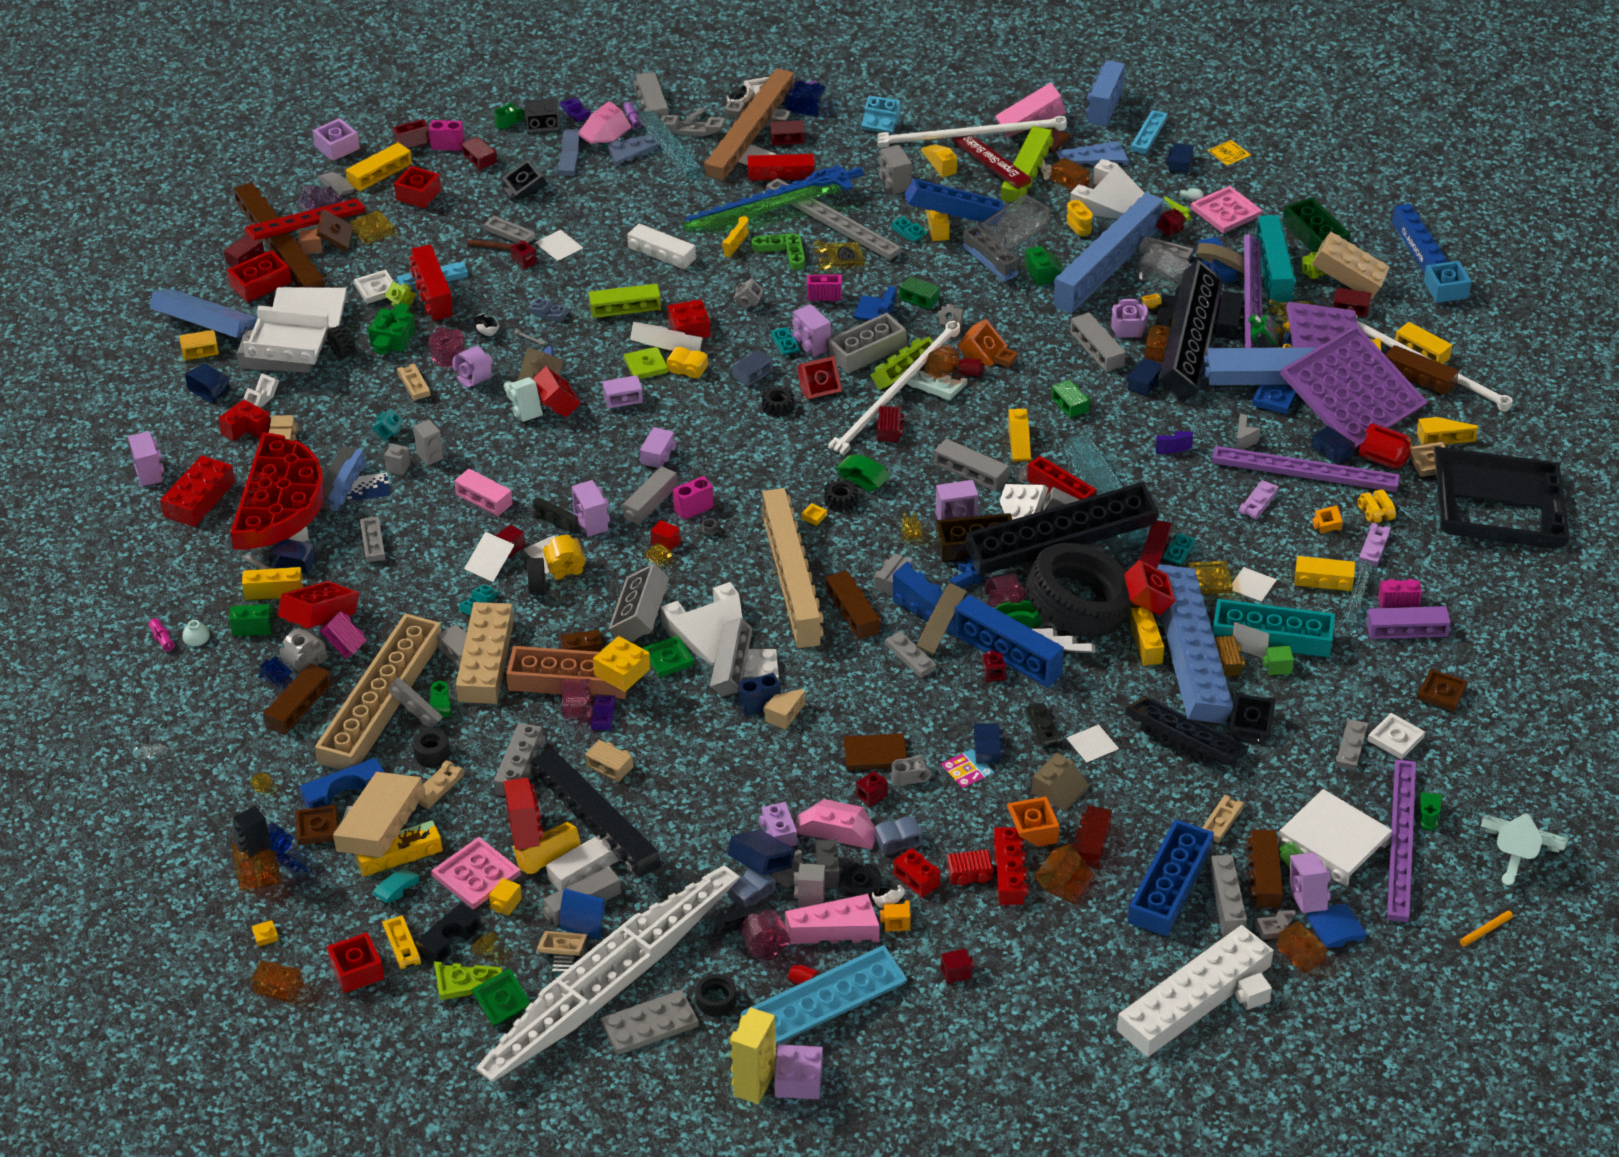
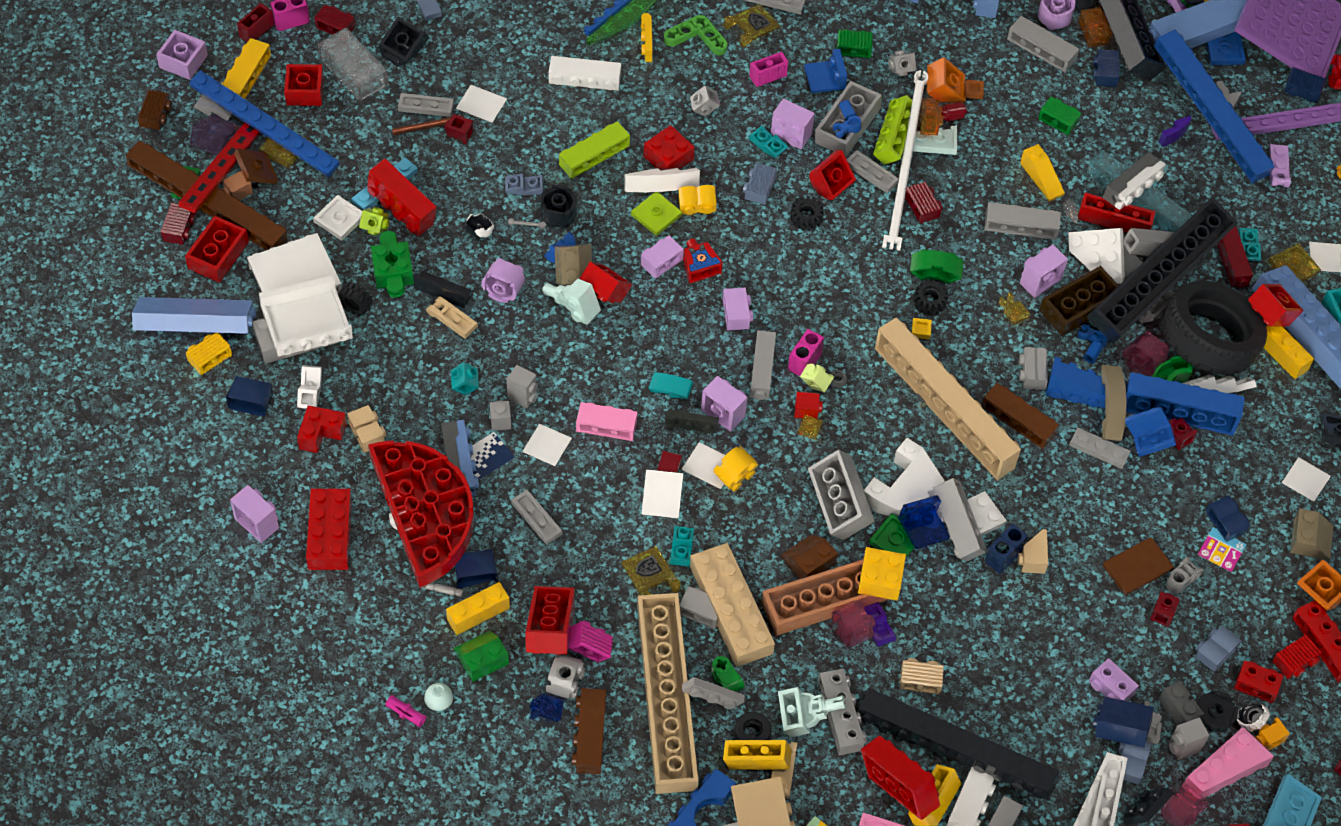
camera: 30 degrees left, 15 degrees up
(286, 171) = (154, 110): none -> reddish brown brick
(363, 203) = (264, 123): none -> blue plate
(417, 759) = (757, 754): none -> yellow brick
(423, 495) = (547, 444): none -> white sticker
(424, 362) = (440, 287): none -> black panel
(438, 608) = (649, 571): none -> clear yellow flag
(445, 345) = (460, 265): clear pink brick -> none
(470, 185) = (353, 64): none -> clear brick
(482, 743) = (804, 710): none -> light aqua brick
(536, 576) = (725, 500): black tyre -> none
(558, 484) = (670, 384): none -> teal slope
(561, 330) = (558, 206): none -> black brick
(653, 406) = (700, 261): none -> red torso
(687, 516) = (816, 377): none -> yellowish green brick
(696, 645) = (923, 523): none -> clear blue bracket
(837, 821) = (1157, 657): bright pink wedge -> none
(860, 341) = (852, 122): none -> blue bar
(860, 388) = (872, 172): none -> light grey plate
(961, 647) = (1151, 431): none -> blue bracket
(1043, 725) = (1258, 479): pearl dark grey plate -> none
(1091, 458) = (1134, 181): none -> piece
(1220, 430) = (1214, 106): none -> blue brick

